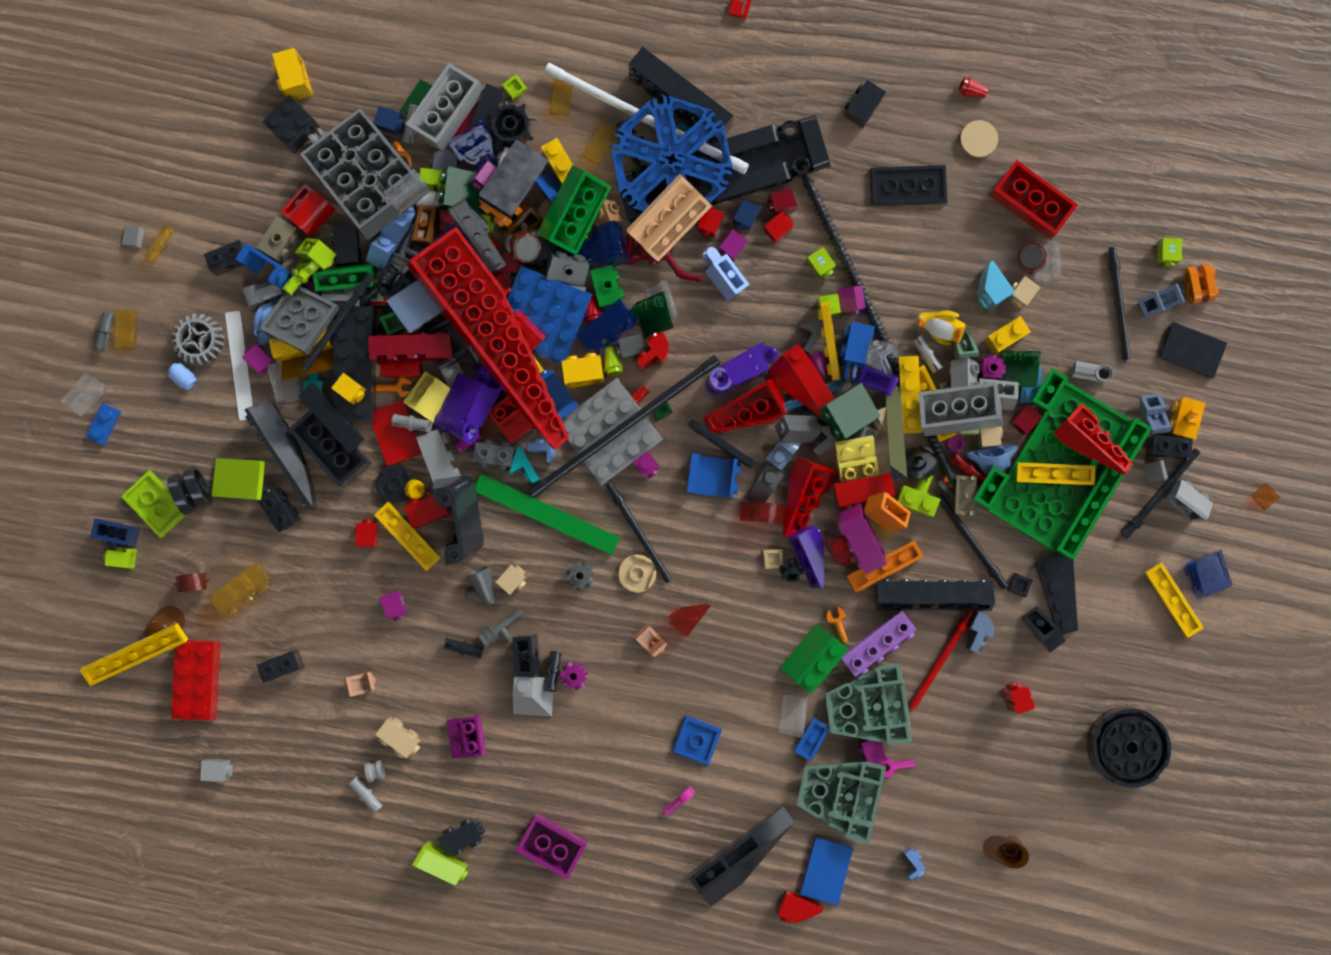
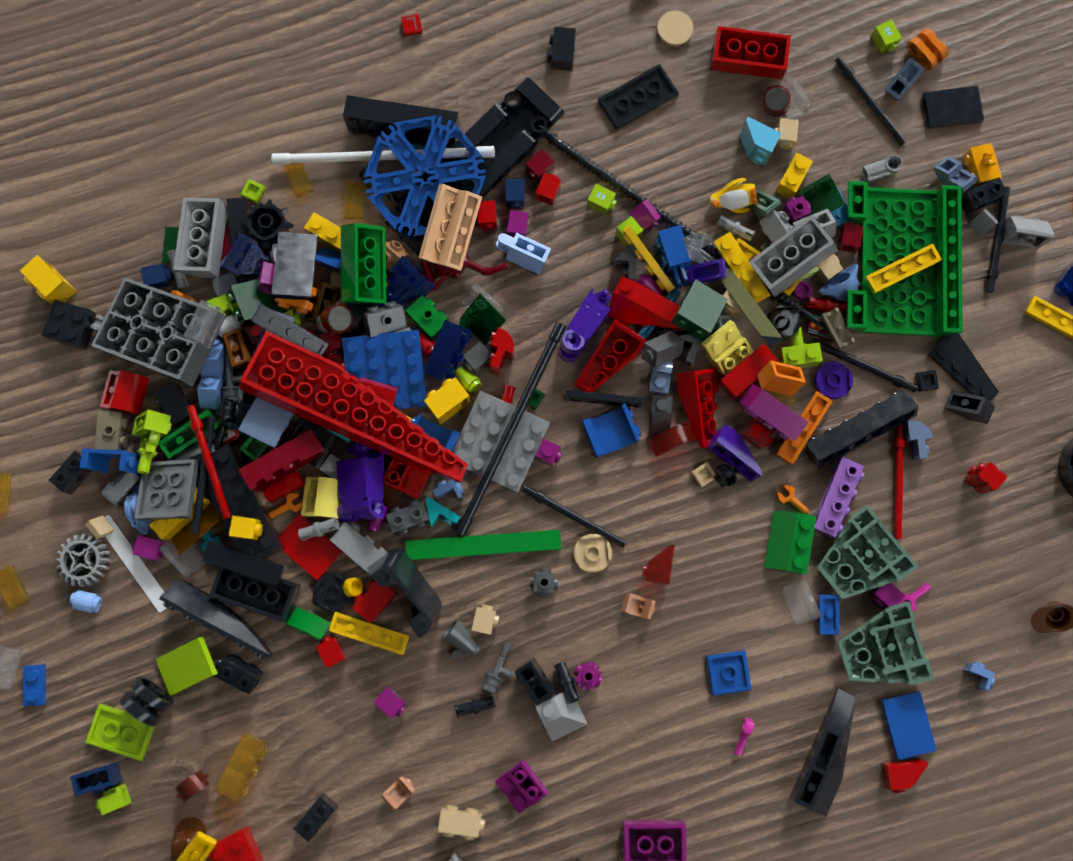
camera: 30 degrees left, 5 degrees down
(226, 318) = (99, 527): none -> tan tile
(353, 277) = (196, 426): none -> red bar
(359, 499) = (308, 623): none -> green slope
(936, 539) = (833, 380): none -> dark purple tile
(1085, 436) = (909, 223): red wedge -> none

